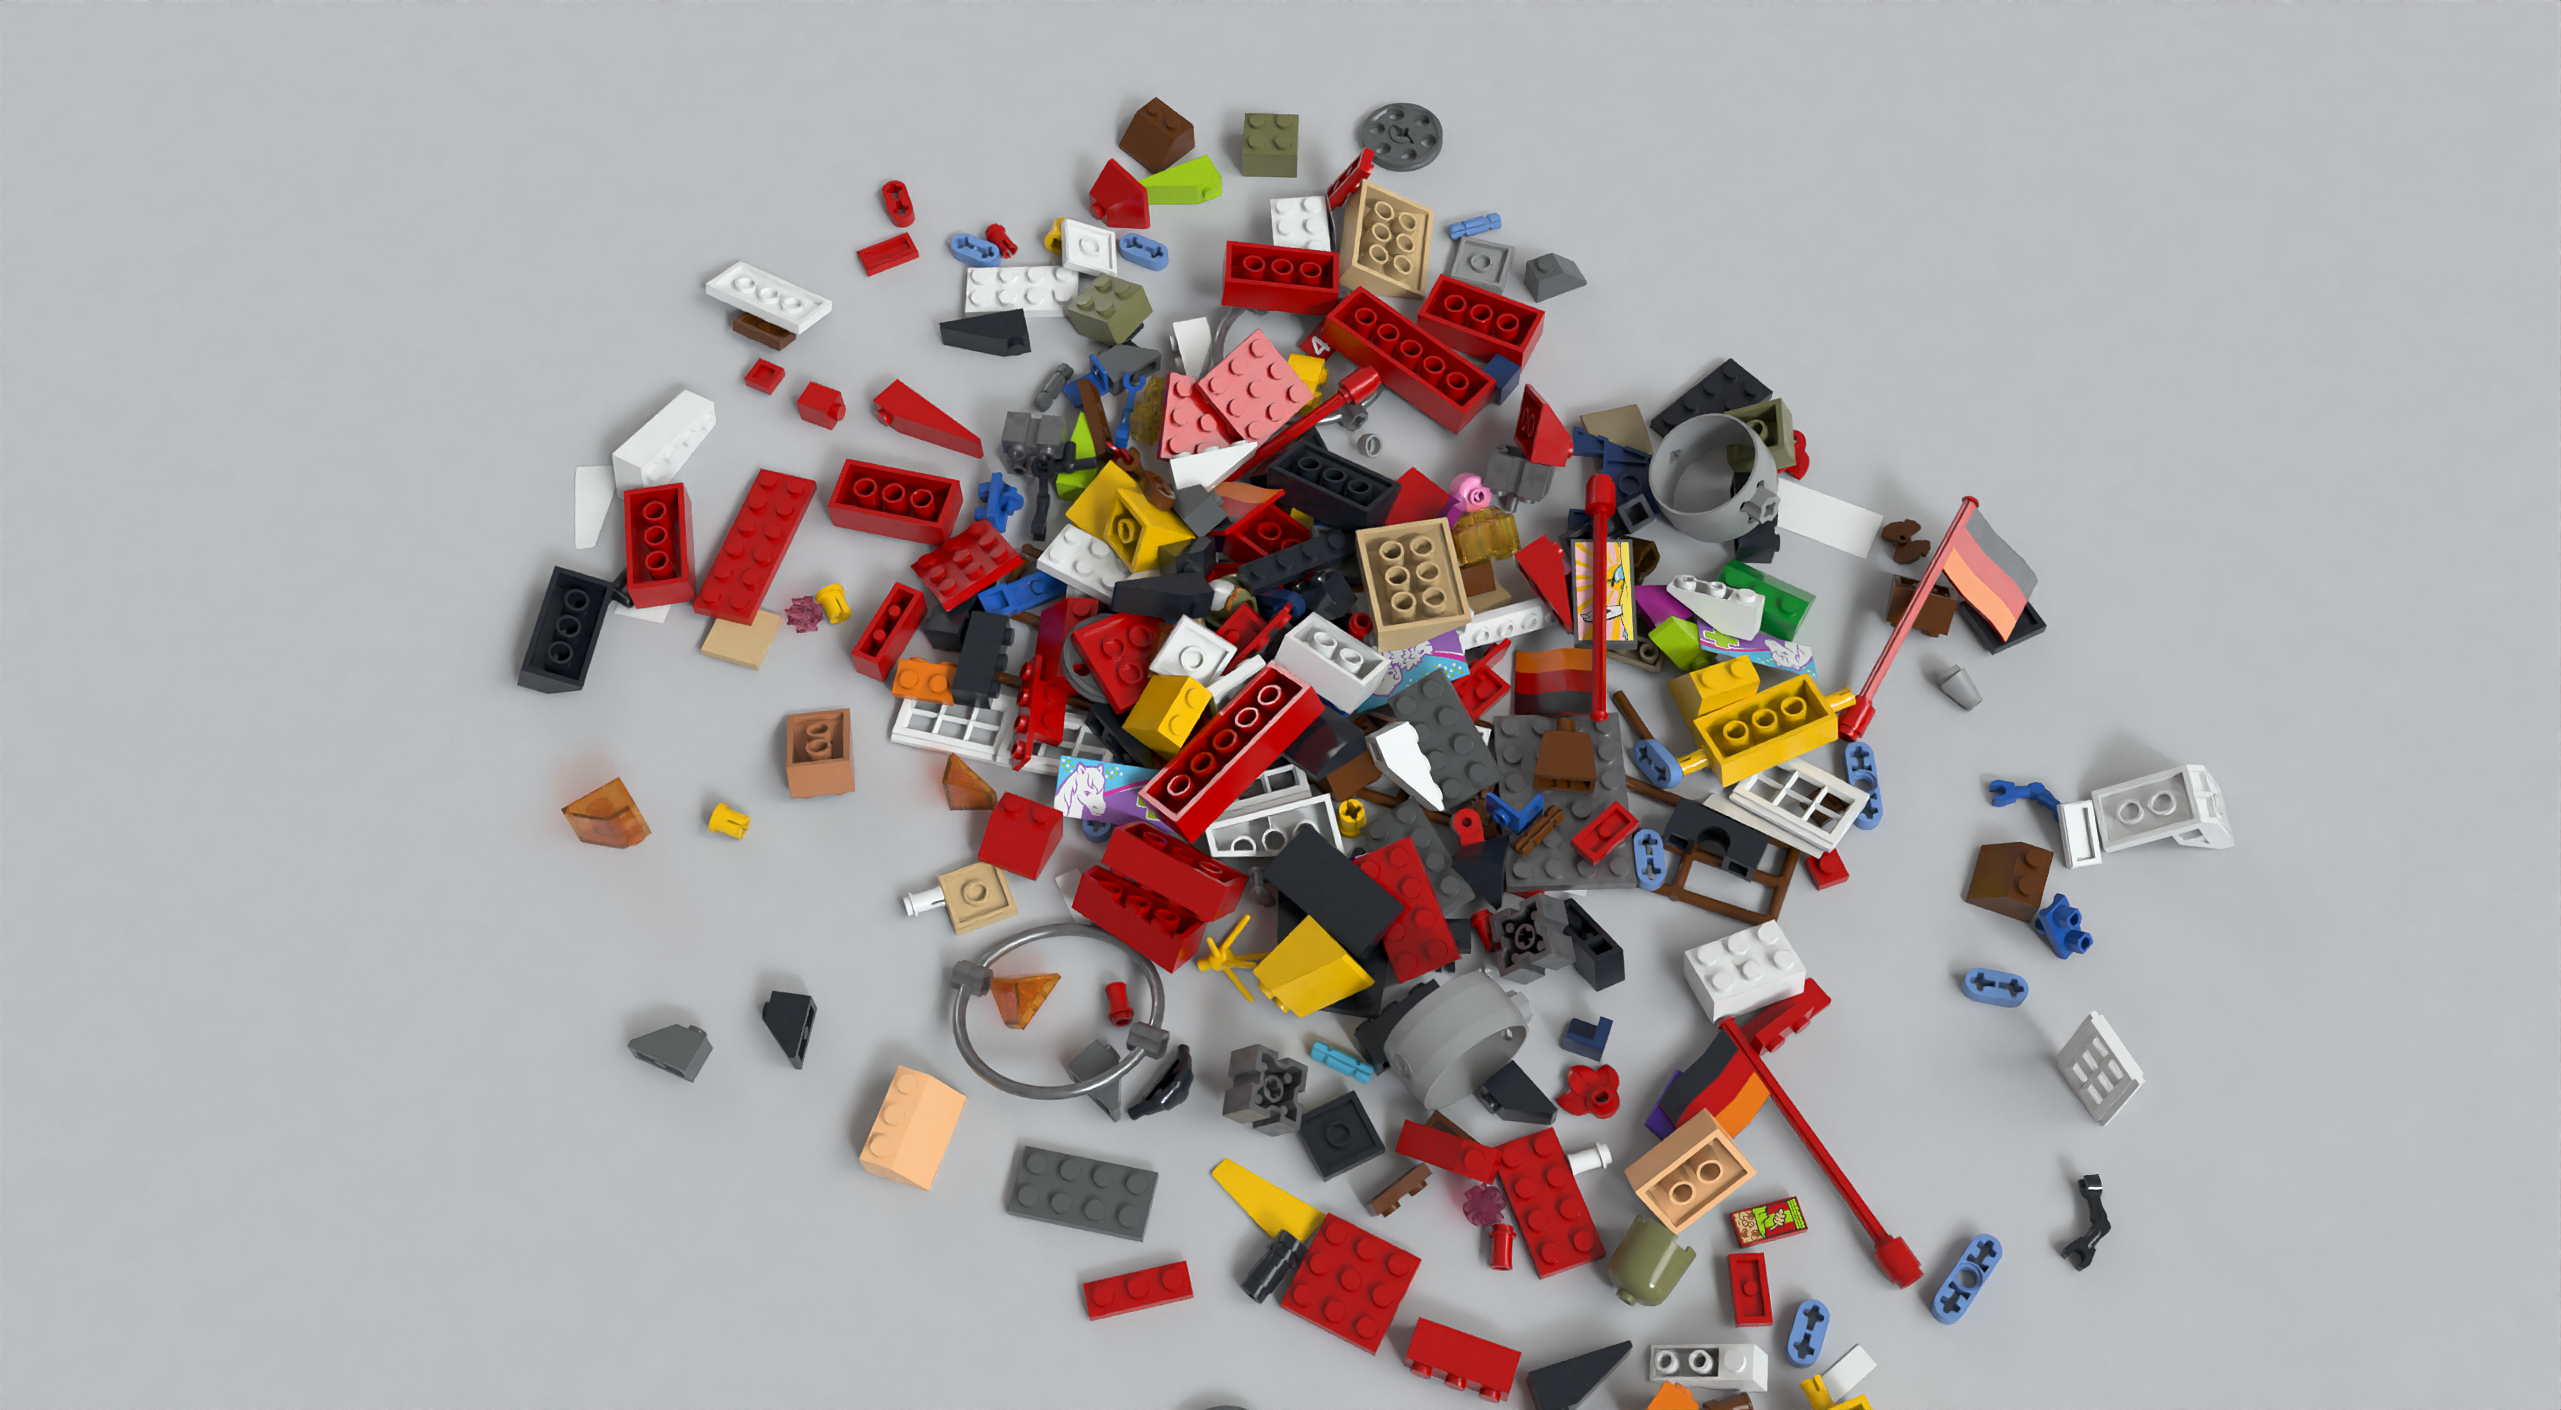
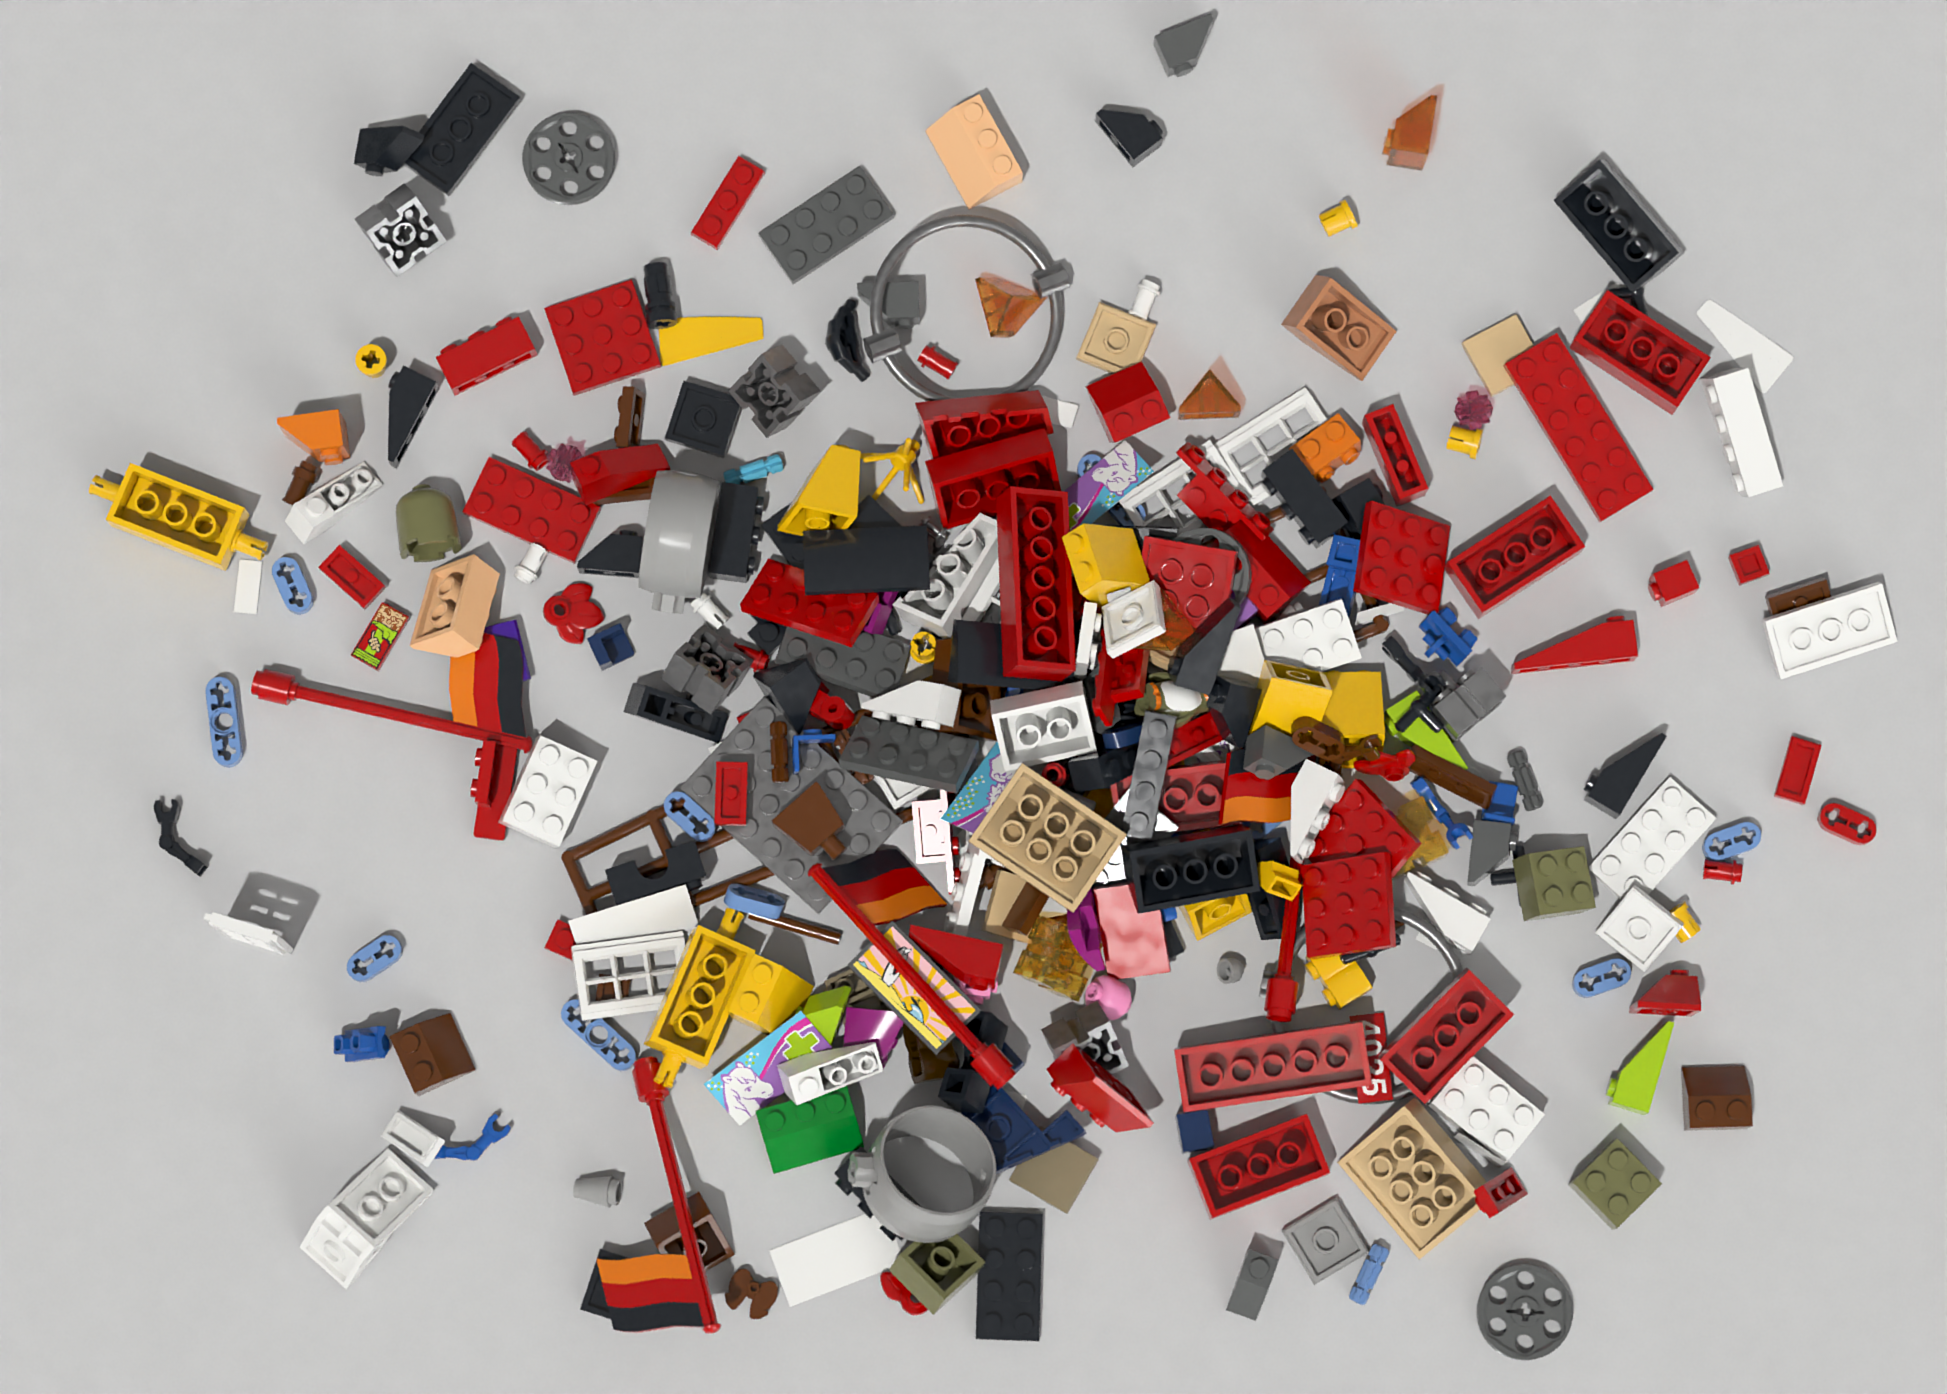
camera: 130 degrees right, 20 degrees up
(1279, 443) = (1278, 879): none -> yellow piece

